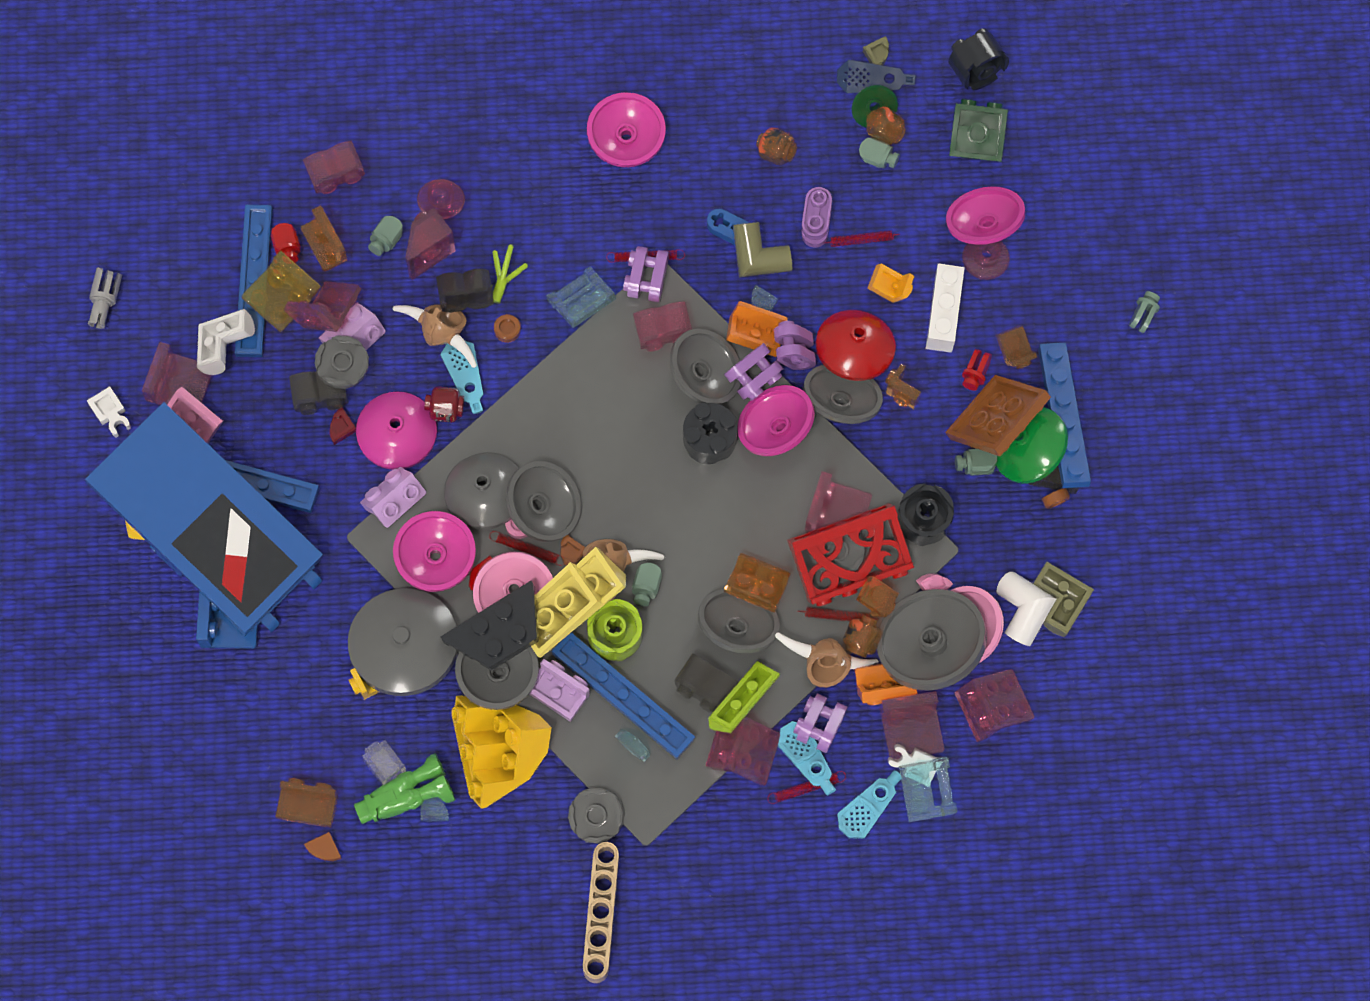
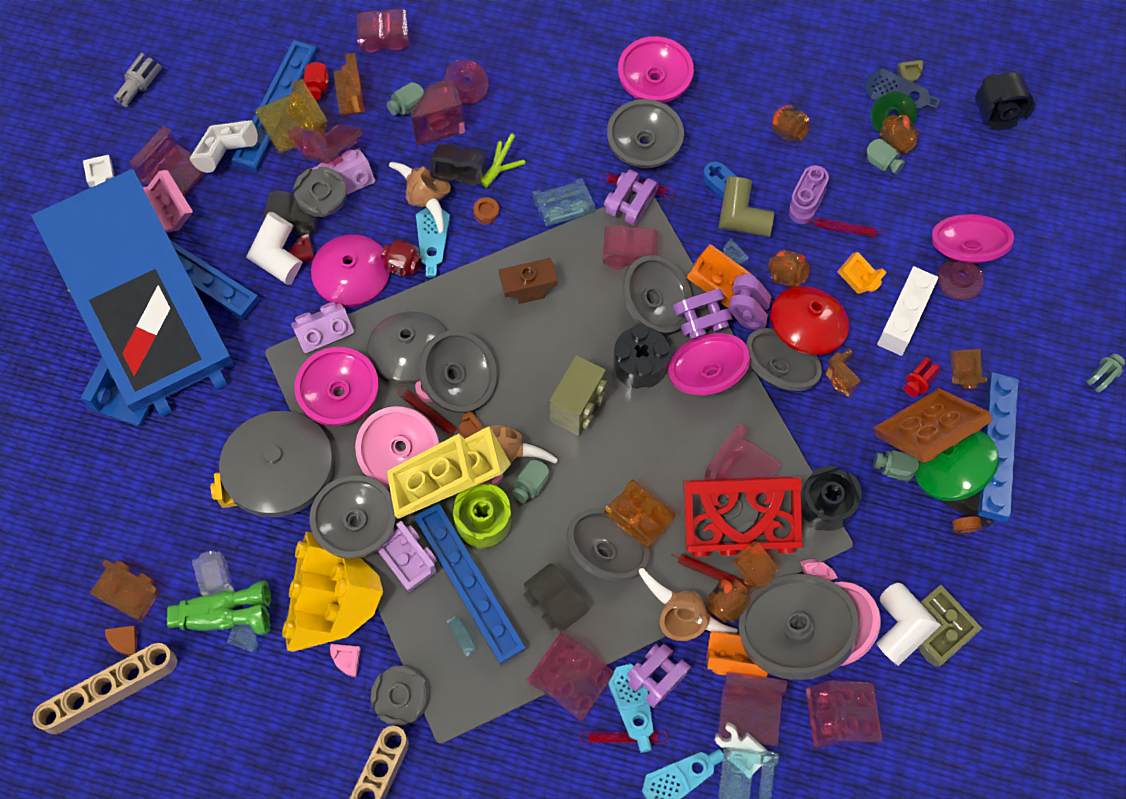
camera: 20 degrees right, 5 degrees down
(311, 437) = (268, 249): none -> white brick
(326, 908) = (91, 689): none -> tan beam
(499, 629) = (367, 478): black wing -> none
(534, 799) = (346, 658): none -> bright pink tile
(578, 390) = (528, 280): none -> reddish brown brick
(636, 187) = (646, 122): none -> dark grey dish
(663, 494) = (578, 395): none -> olive brick
(742, 698) = (585, 623): lime slope -> none
(820, 299) = (789, 268): none -> clear orange head
(978, 131) = (986, 162): dark green plate -> none

